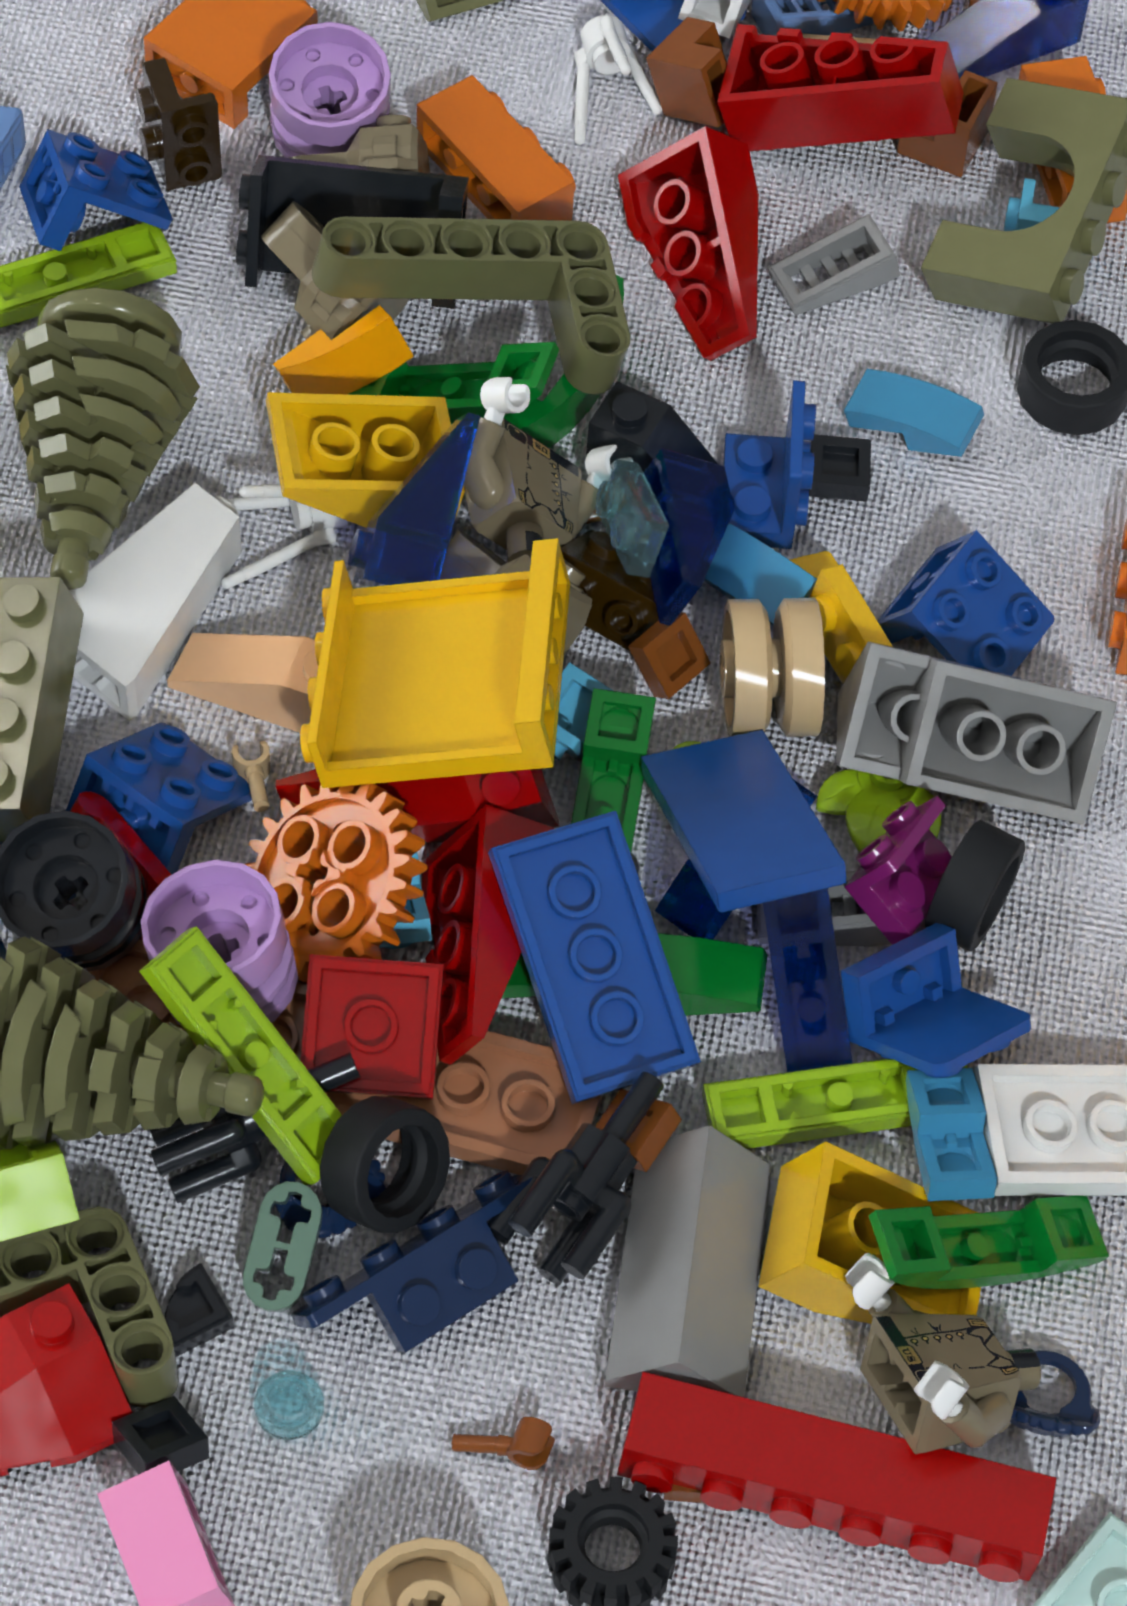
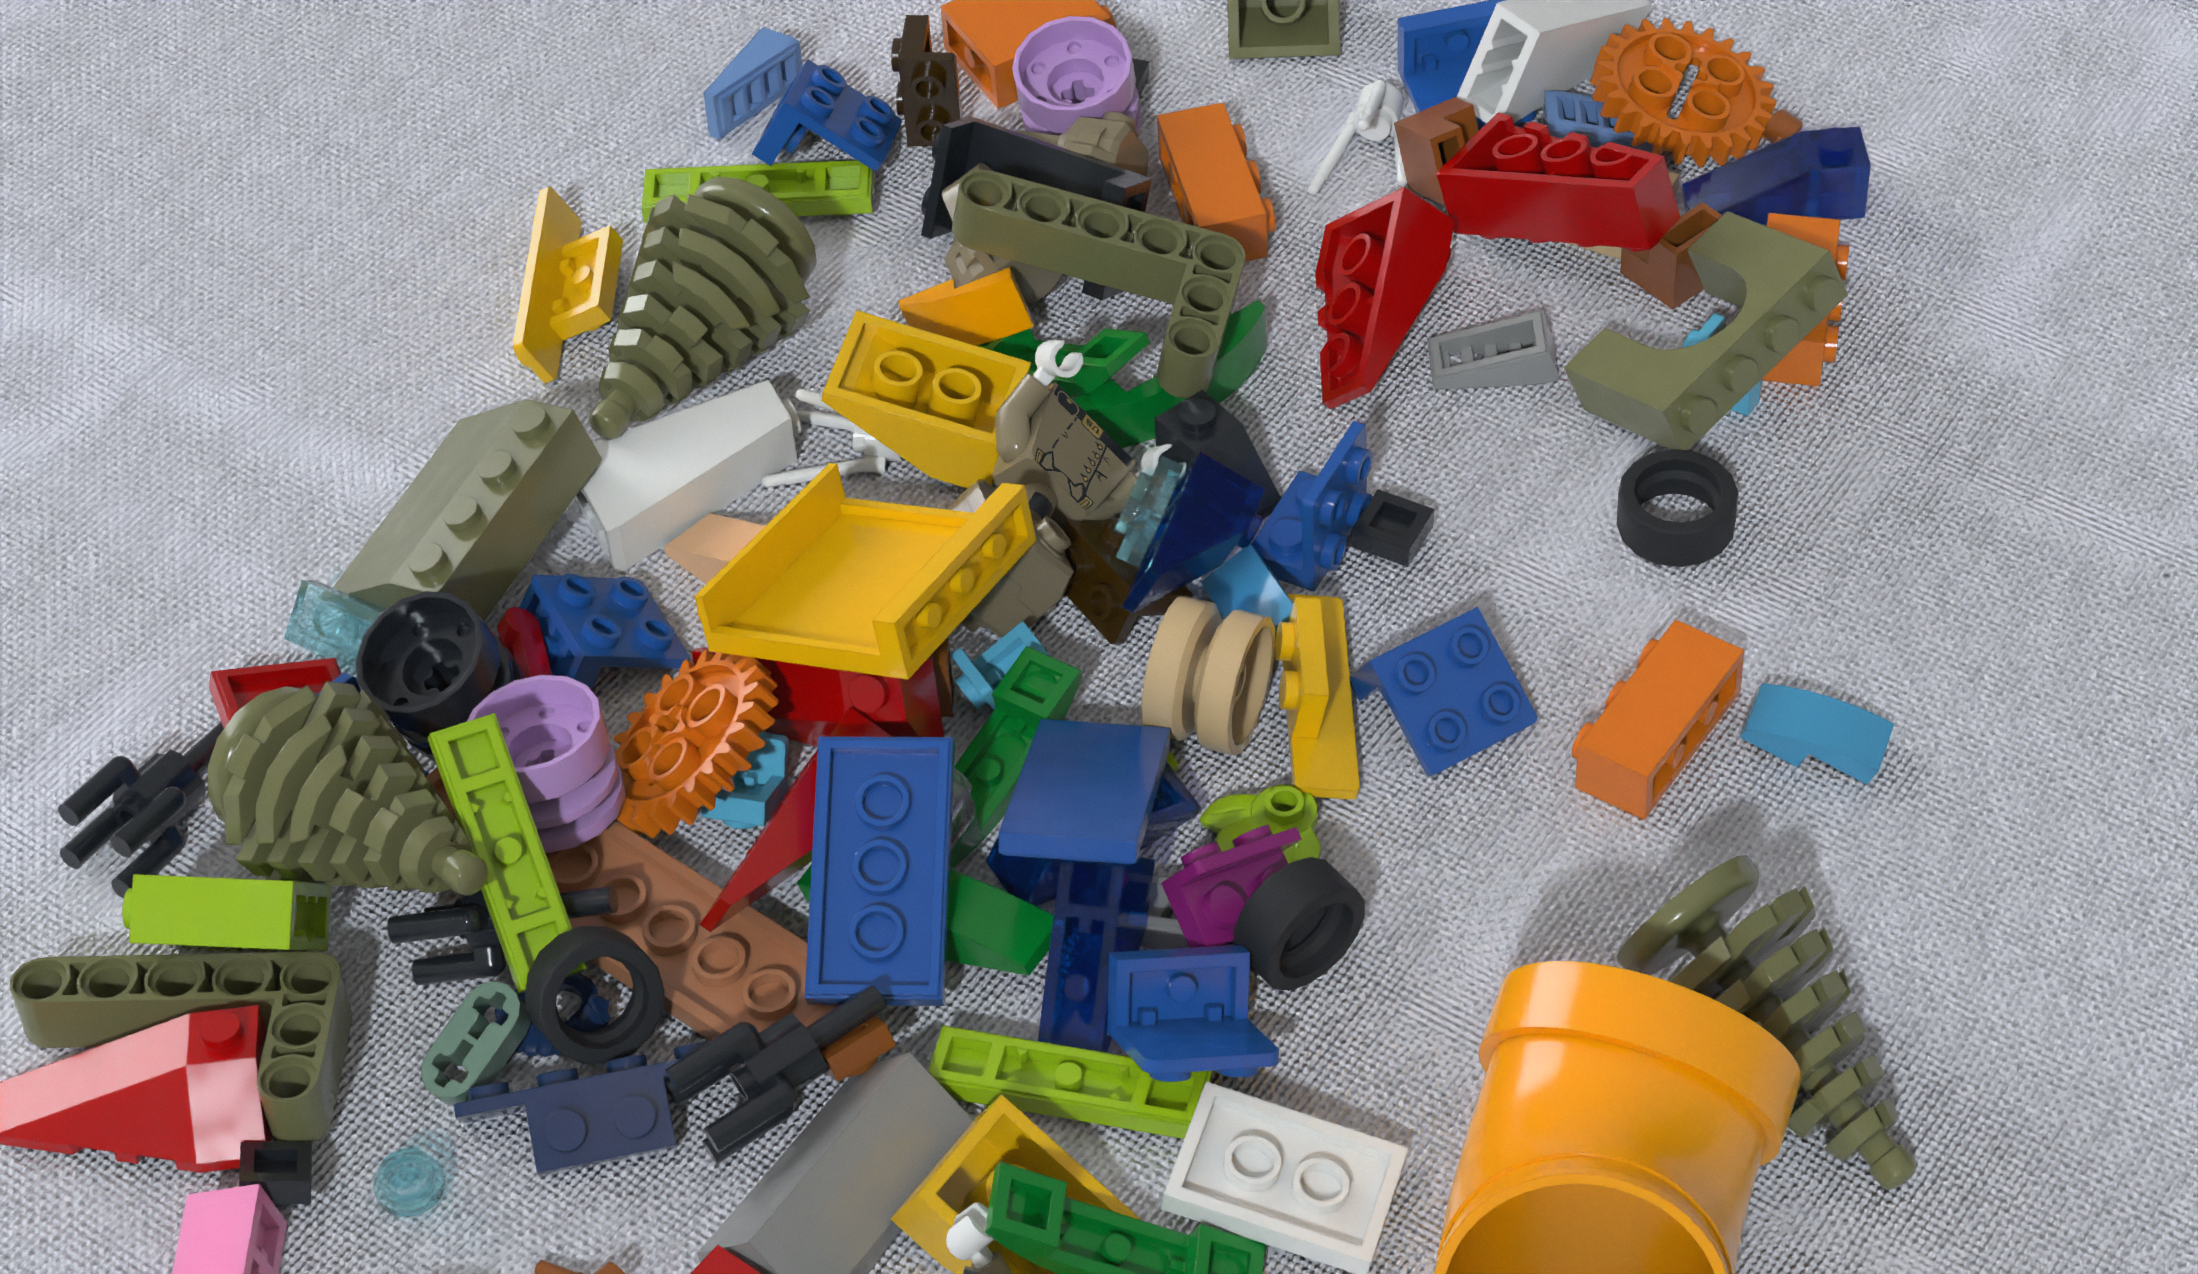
camera: 30 degrees right, 10 degrees down
(196, 1311) = (374, 1082): black tile -> none
(254, 773) = (689, 640): tan hand -> none
(380, 1015) = (661, 869): red plate -> none
(413, 527) = (934, 450): clear blue slope -> none
(669, 656) = (1125, 644): dark orange plate -> none
(923, 412) = (1502, 499): dark azure slope -> none
(949, 1136) = (1145, 1139): dark azure slope -> none
(972, 732) = (1375, 787): light grey slope -> none

